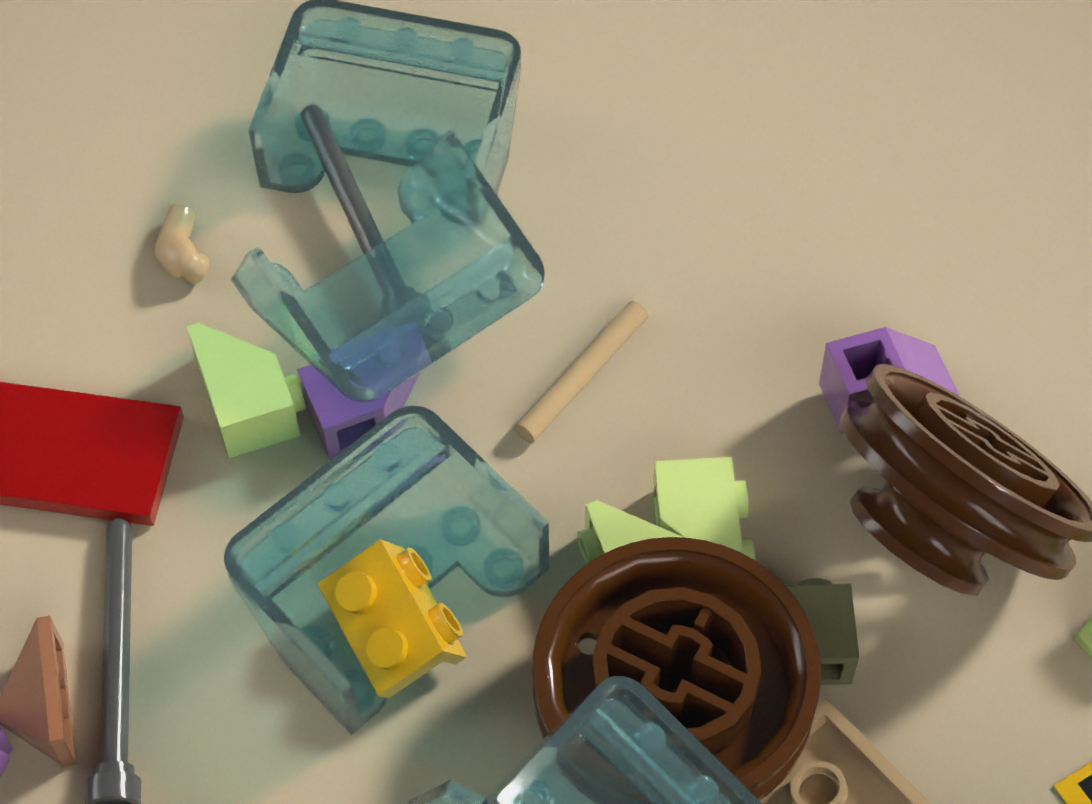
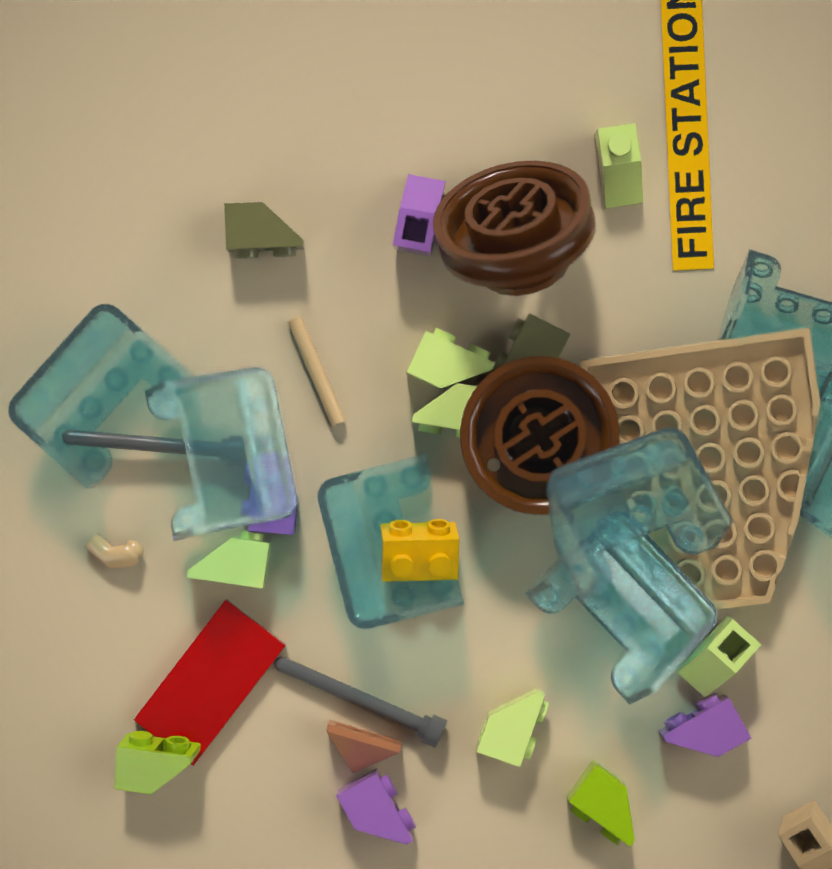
camera: 60 degrees left, 30 degrees up
(729, 199) = (257, 228): none -> olive slope

